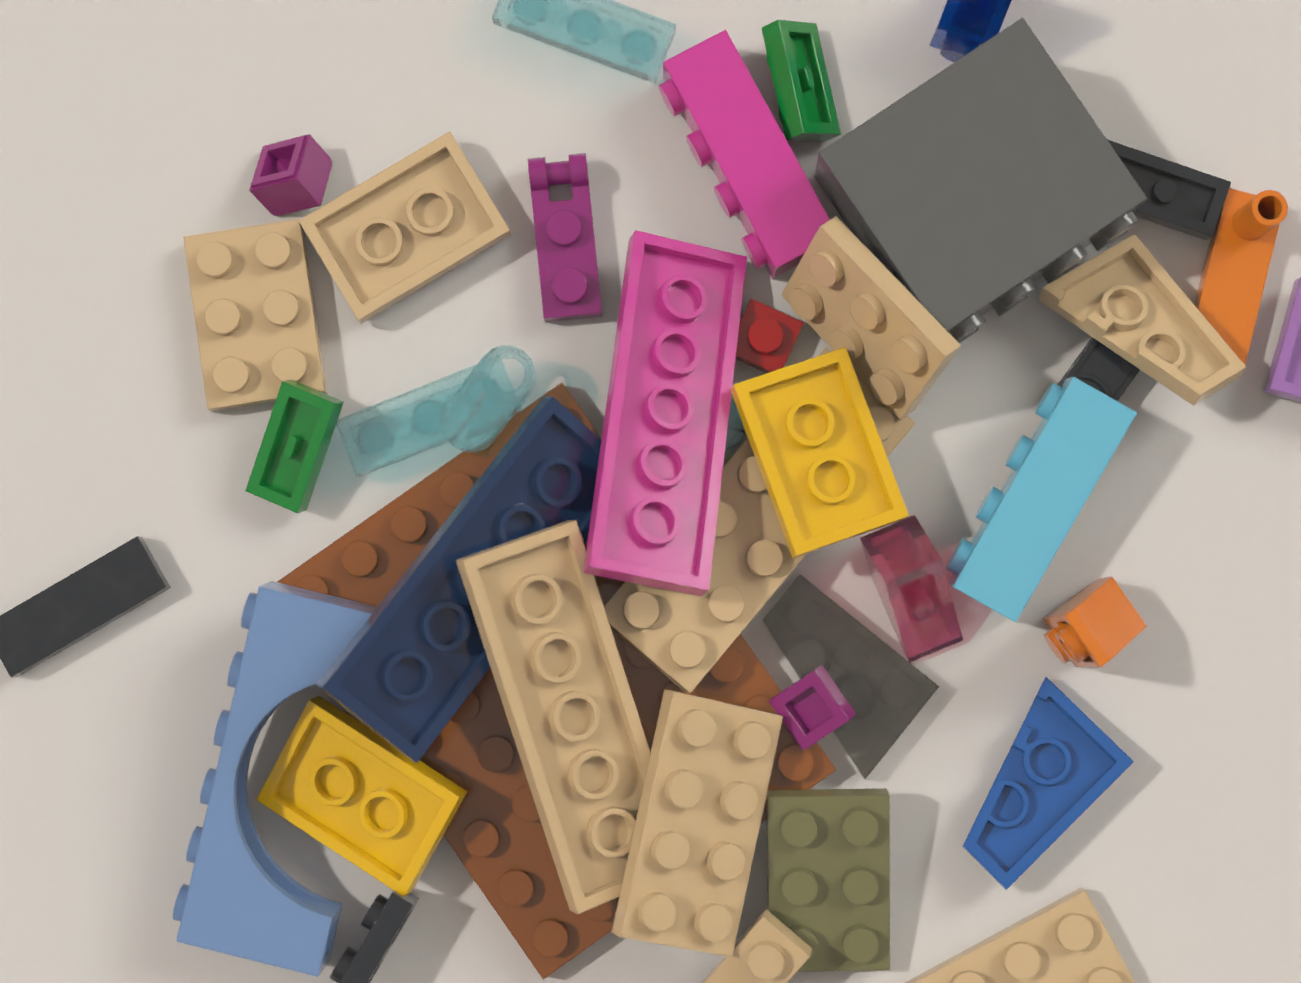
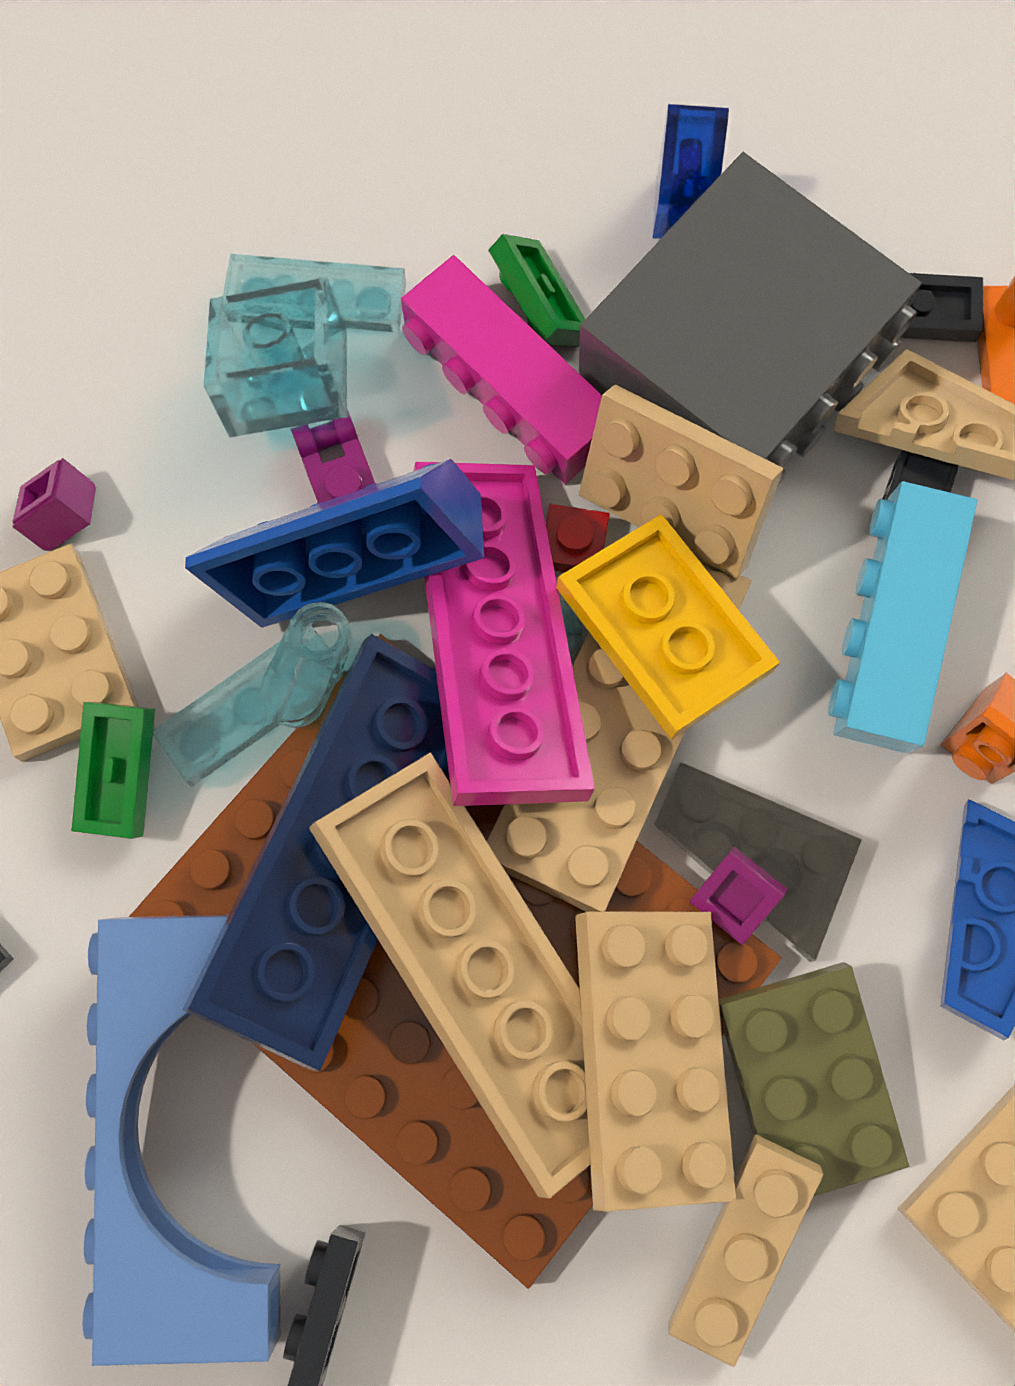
camera: 15 degrees left, 10 degrees down
(361, 796) = (270, 1131): yellow plate -> none
(405, 227) = (172, 511): tan plate -> none
(532, 92) = (276, 357): none -> clear light blue brick
(551, 302) = (347, 545): none -> blue slope
(912, 587) = (802, 743): clear pink slope -> none

